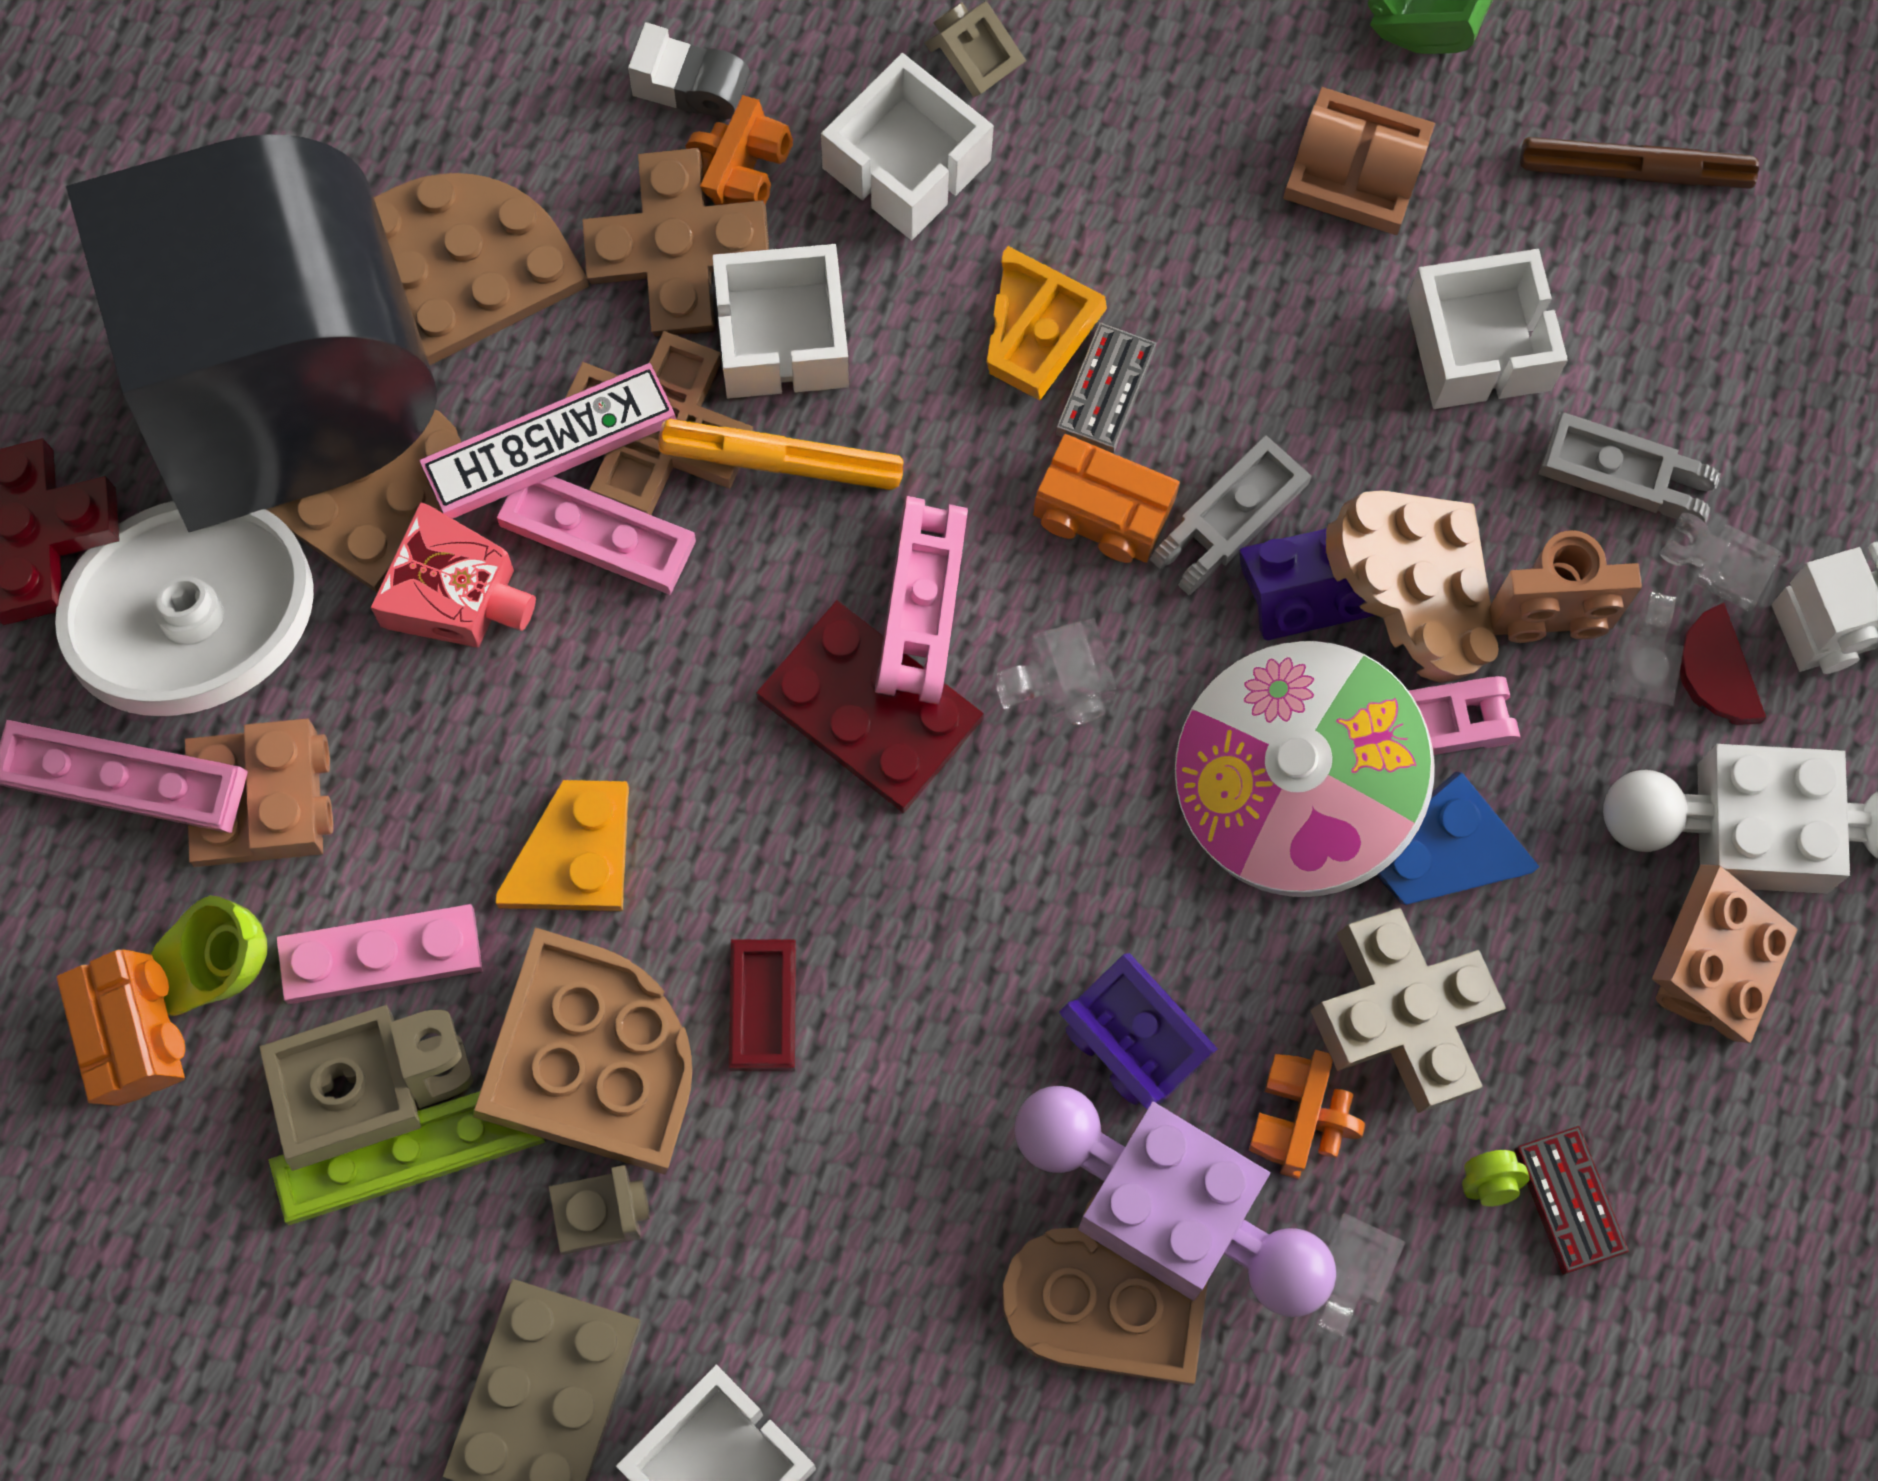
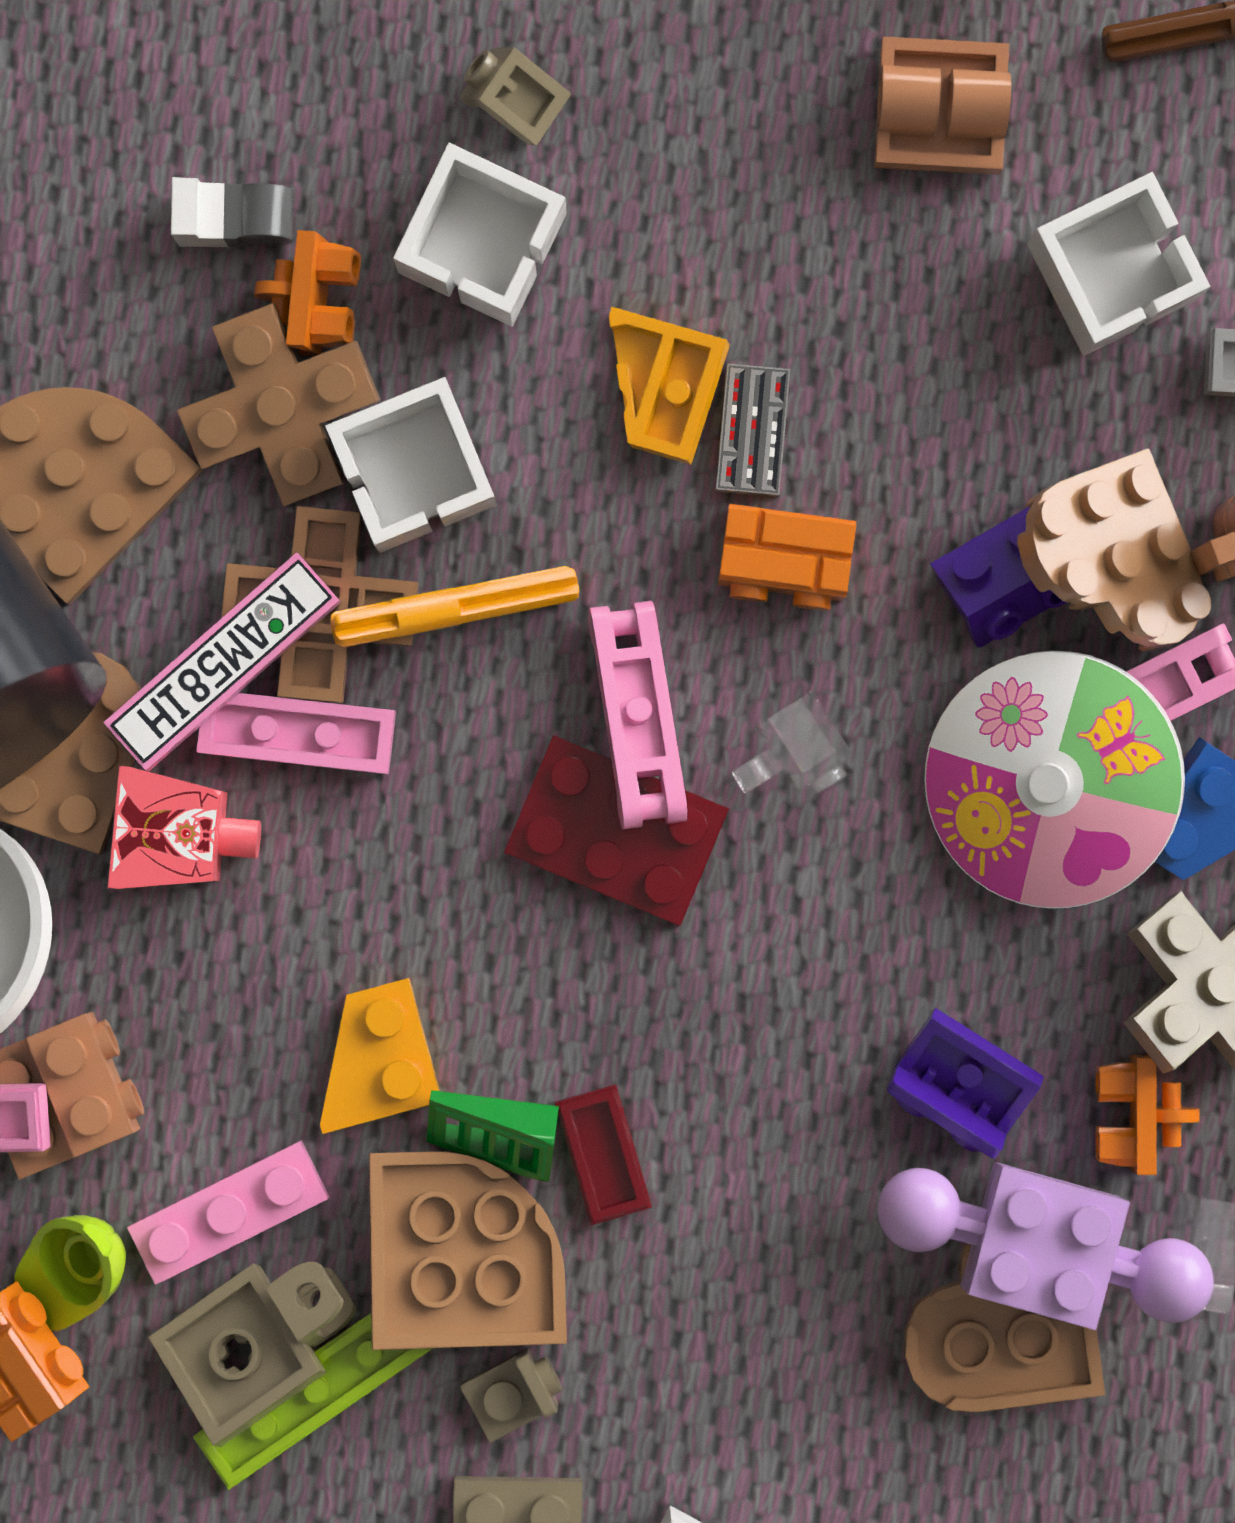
camera: 15 degrees left, 15 degrees up
(690, 939) = (507, 1134): none -> green slope
(1234, 511) = (916, 524): light grey hinge -> none

